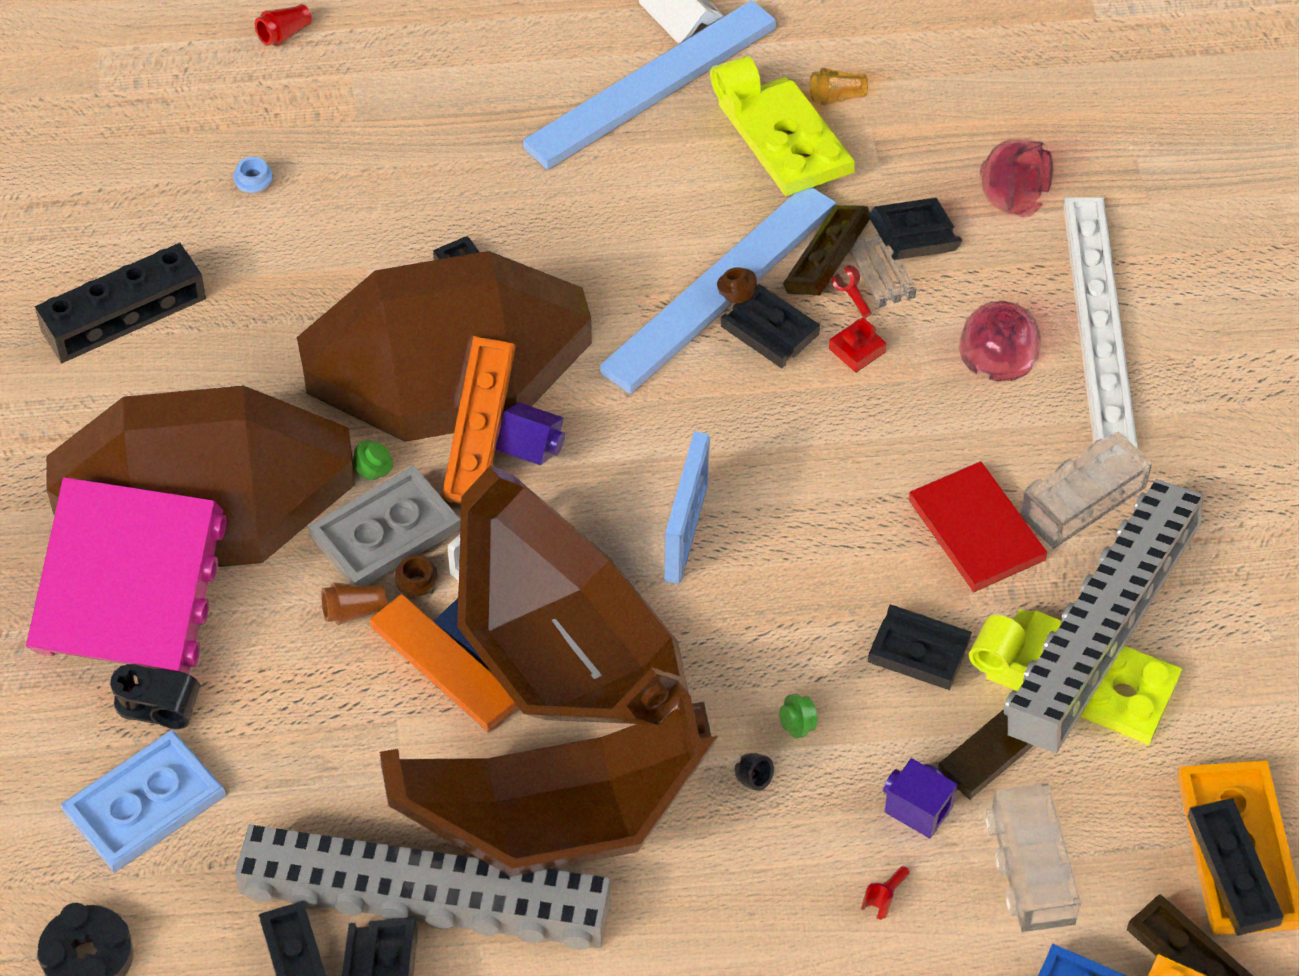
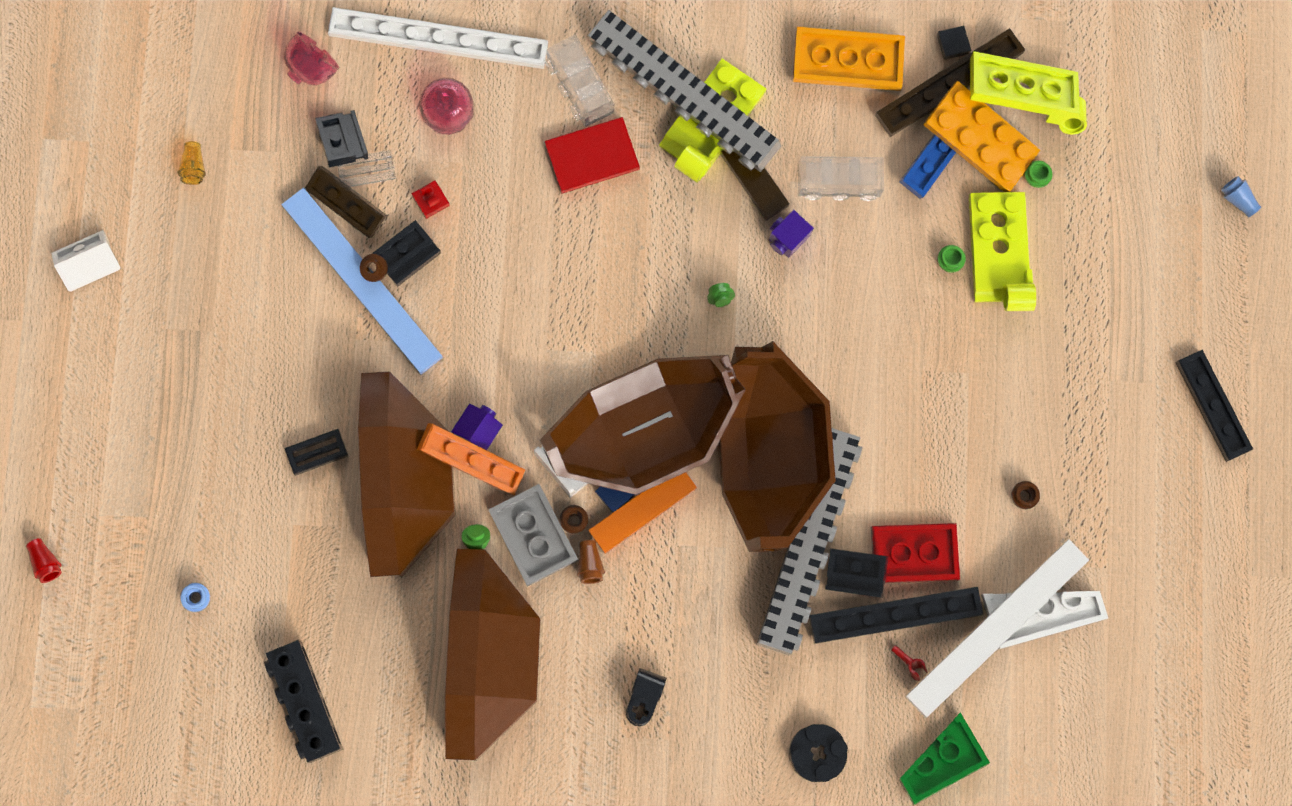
camera: 90 degrees left, 25 degrees up
(126, 576) = (564, 708): dark pink panel -> none
(143, 800) = (715, 711): light blue tile -> none
(648, 85) = (158, 296): light blue tile -> none
(687, 507) = (561, 333): light blue tile -> none
(755, 763) = (754, 329): black hinge -> none
(774, 107) = (201, 215): neon yellow hinge -> none
(852, 289) = (380, 194): red hand -> none
(881, 895) = (850, 269): red hand -> none
(919, 647) = (681, 211): black plate -> none
(1235, 867) = (871, 64): black plate -> none

